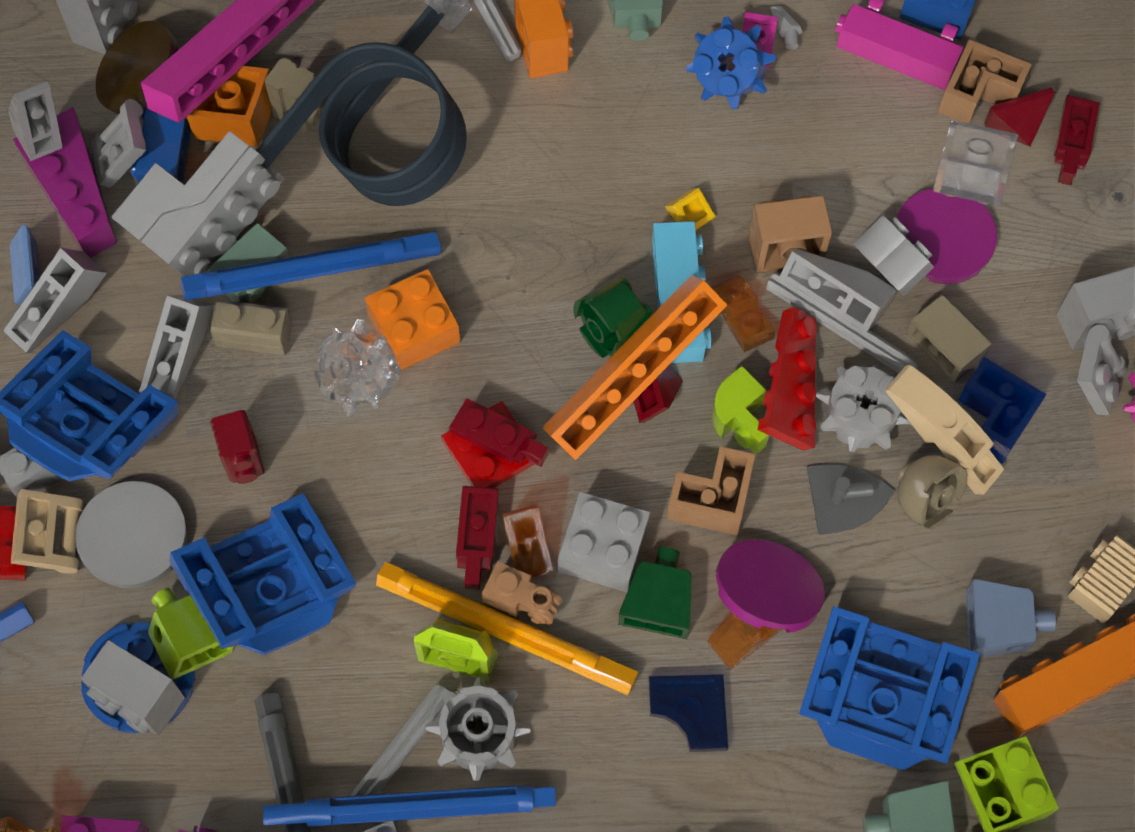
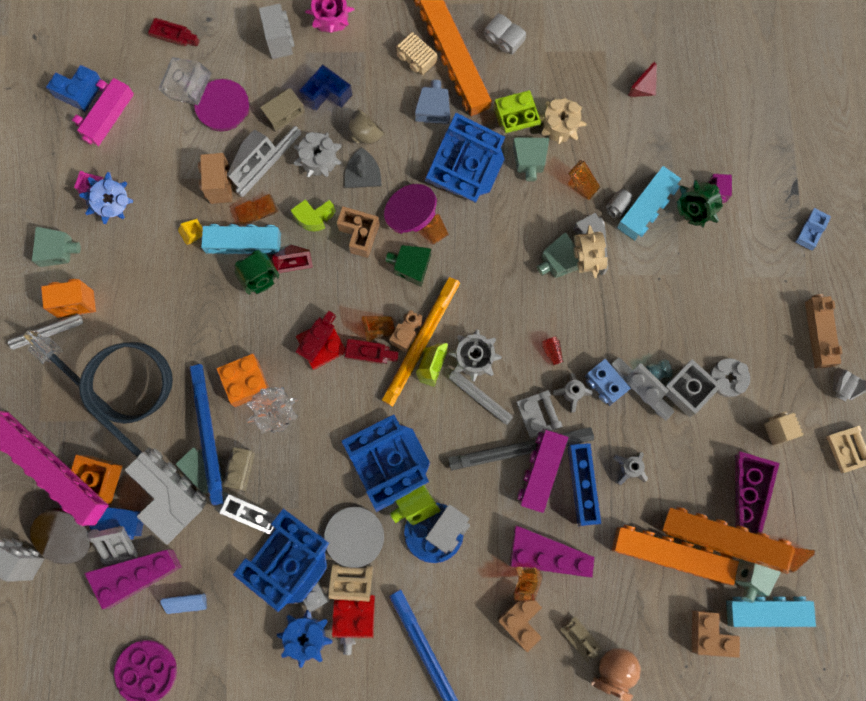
camera: 85 degrees left, 10 degrees up
(35, 121) = (98, 590): light grey slope -> none
(54, 298) = (208, 583): light grey slope -> none
(237, 447) = (313, 474): dark red brick -> none
(285, 86) = (94, 441): dark tan brick -> none
(411, 805) = (512, 392): blue piece -> none
(603, 542) = (380, 288): light grey brick -> none
(634, 366) = (287, 261): orange brick -> none
(694, 706) = (466, 253): clear blue tile -> none
(787, 27) = (85, 166): light grey bar -> none
(793, 392) = (296, 186): red wing -> none
(894, 254) = (233, 128): light grey brick -> none
(947, 425) = (334, 113): tan slope -> none
(985, 76) = (132, 71): medium nougat brick -> none
(1020, 115) = (158, 57): dark red slope -> none
(1098, 376) = (309, 38): light grey plate -> none

